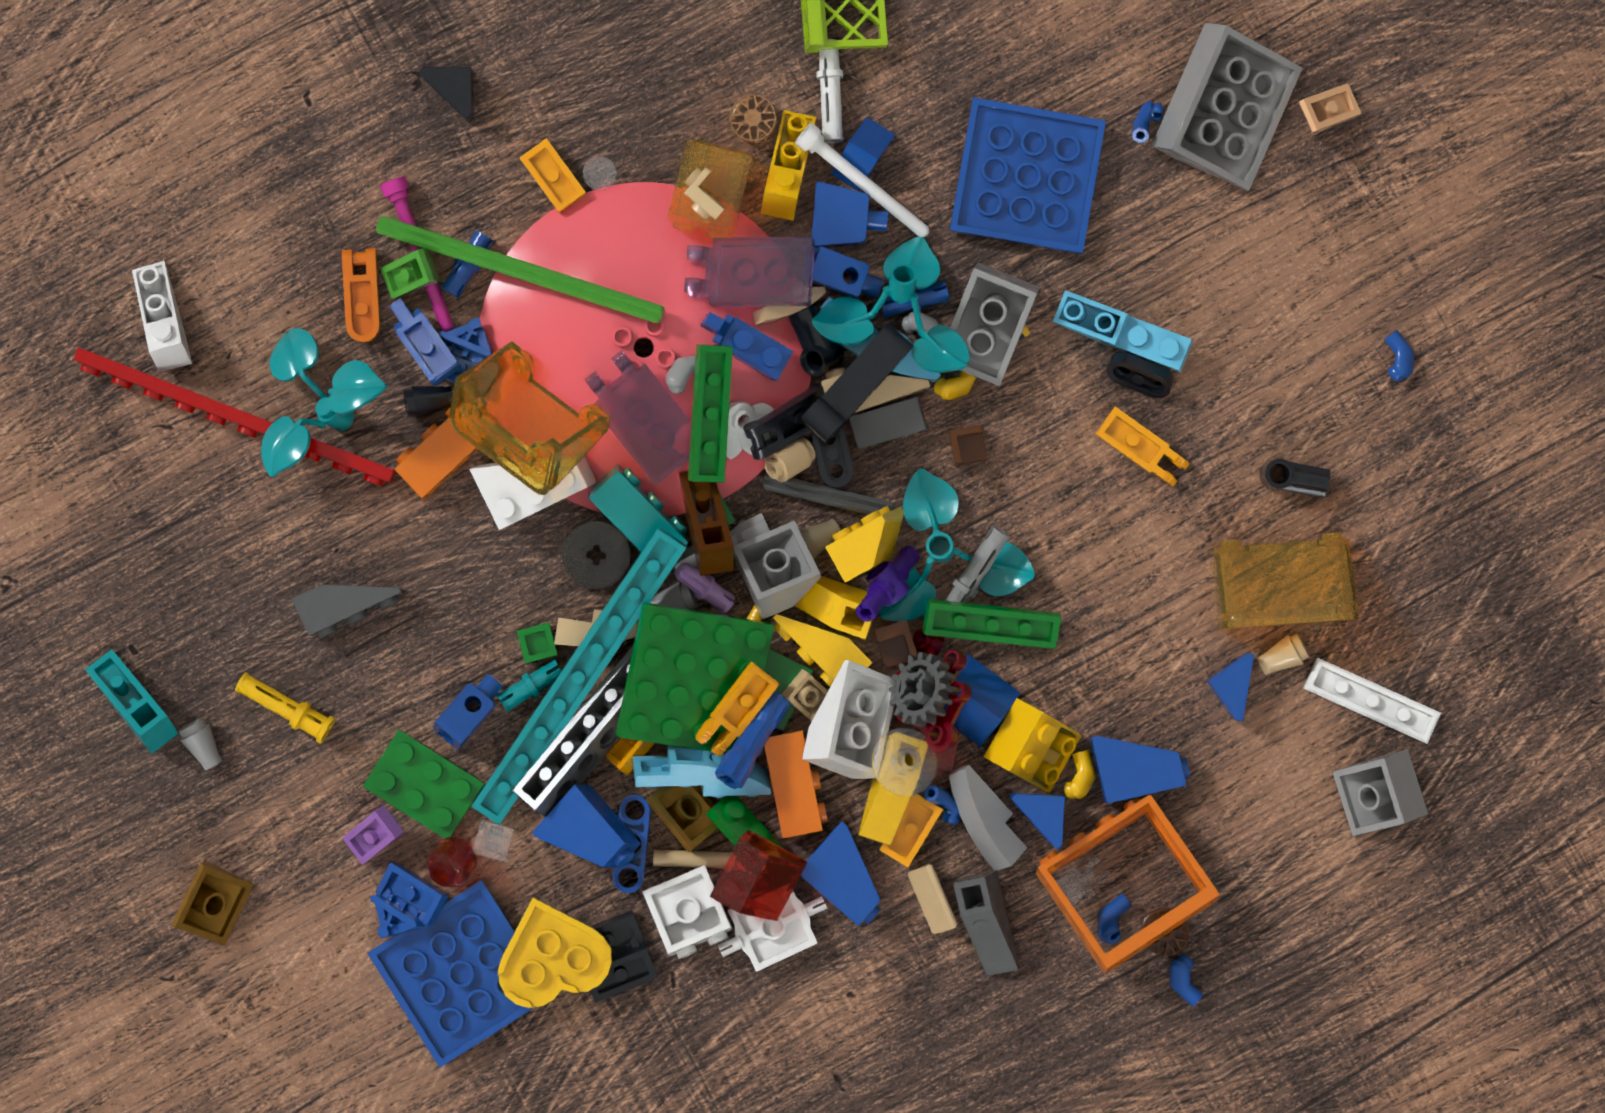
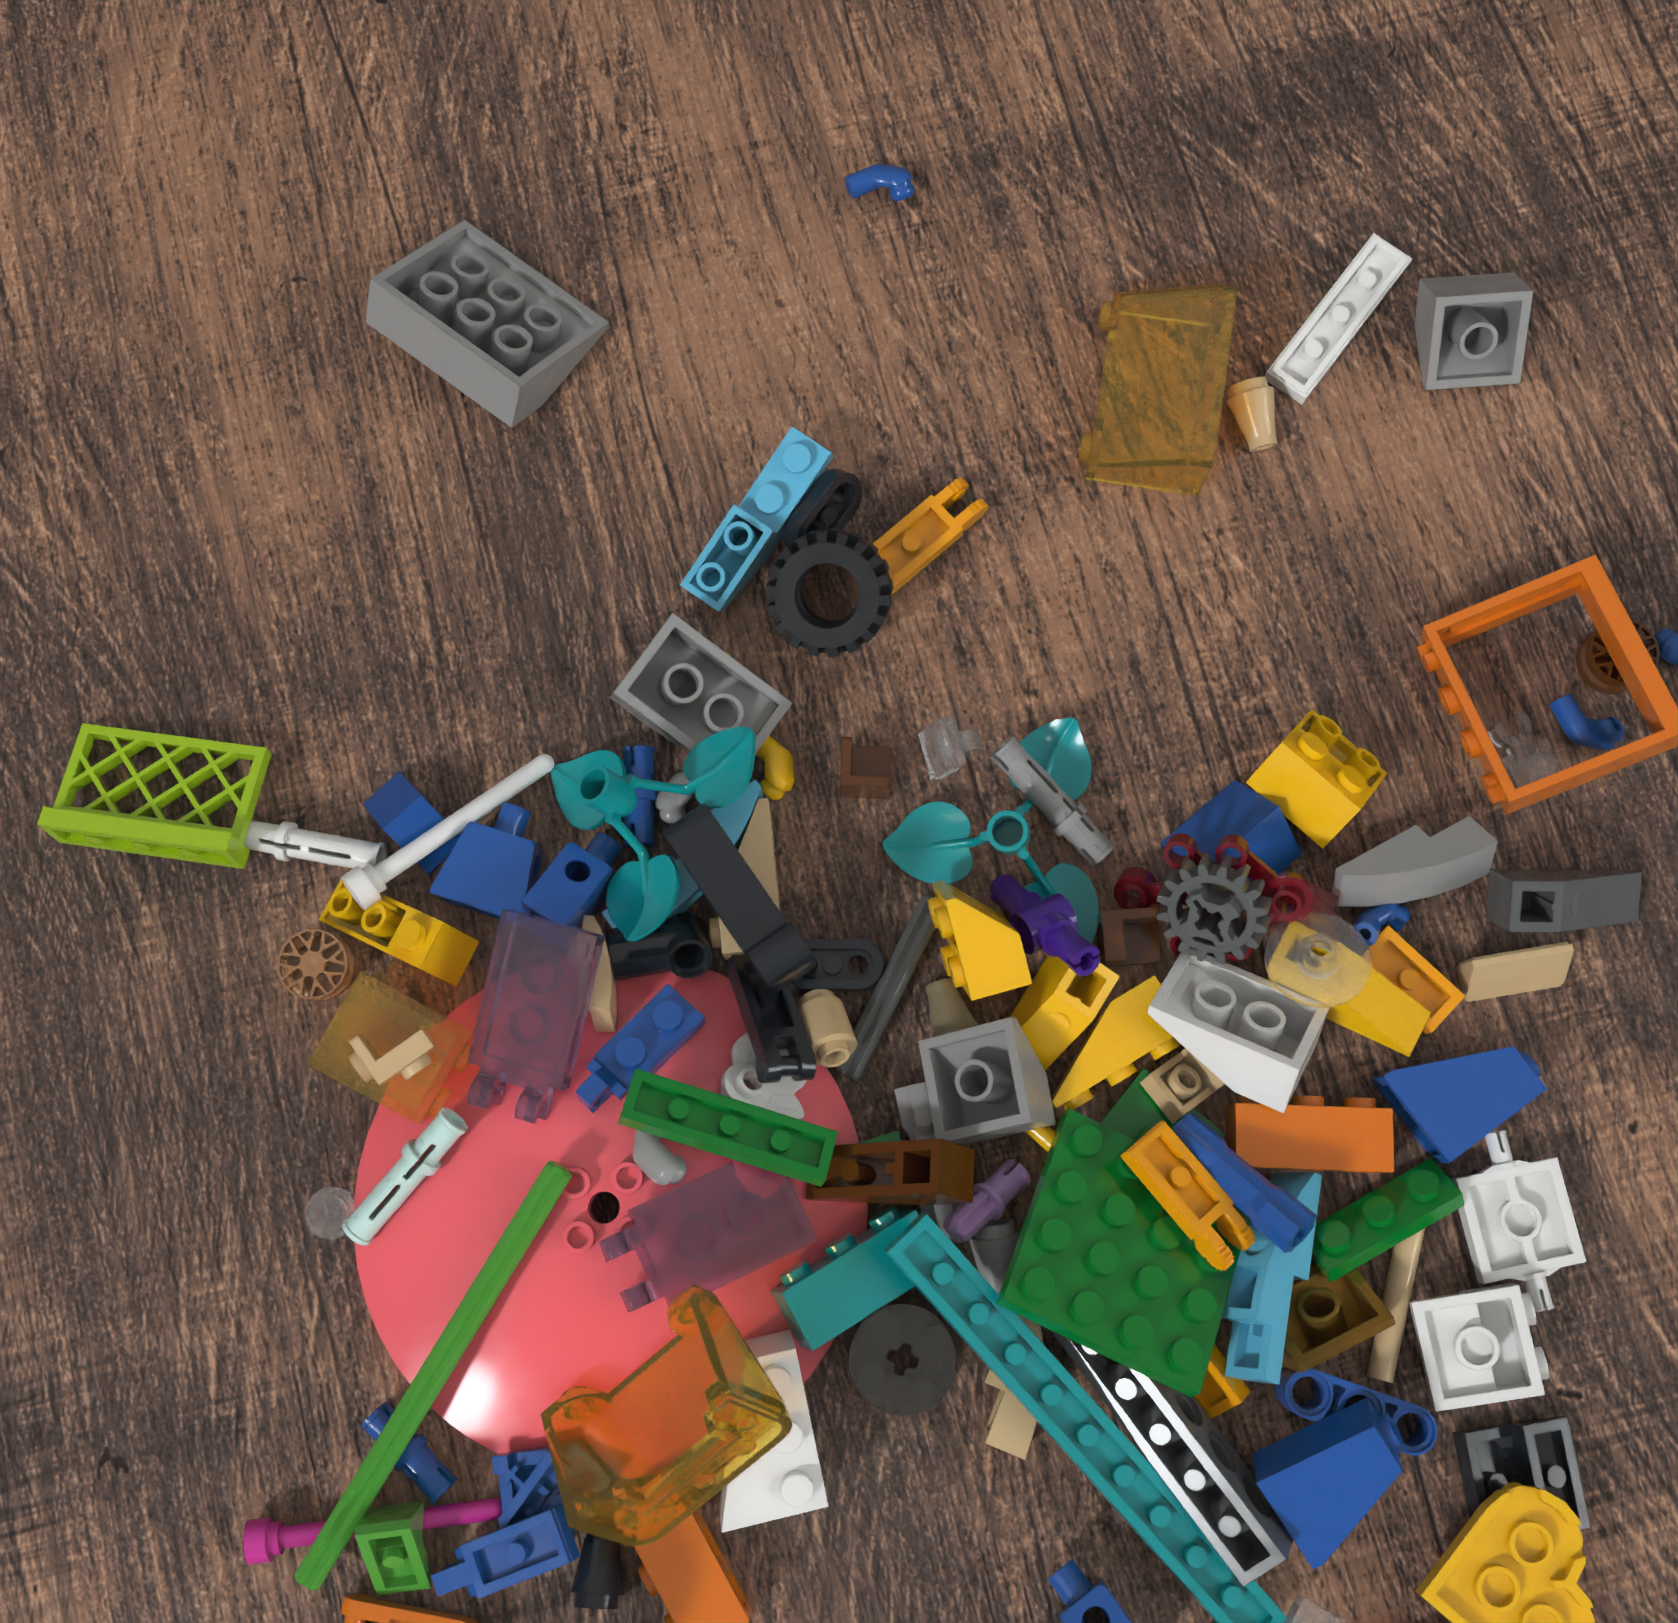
camera: 75 degrees left, 10 degrees down
(454, 86) = (132, 1406): black slope -> none
(529, 685) = (1078, 1513): teal pin -> none
(537, 643) = (1014, 1485): green plate -> none
(553, 175) = (312, 1285): light orange plate -> none
(645, 223) = (367, 1217): none -> light aqua pin
(758, 877) = (1452, 1225): clear red slope -> none
(888, 422) = (806, 873): dark grey slope -> none
(991, 623) = (1131, 793): green plate -> none
(994, 496) = (946, 748): none -> clear tile
(1027, 175) = (507, 602): blue plate -> none
(1044, 812) = (1423, 775): blue slope -> none
(1055, 387) = (799, 621): none -> black tyre
(1084, 777) = (1376, 718): yellow arm -> none
(1136, 769) = (1379, 644): blue slope -> none
(1140, 125) = (467, 426): blue arm -> none
(1232, 685) = (1284, 486): blue slope -> none
(1298, 478) = (1014, 345): black piece -> none
(1329, 108) = (527, 198): light nougat slope -> none

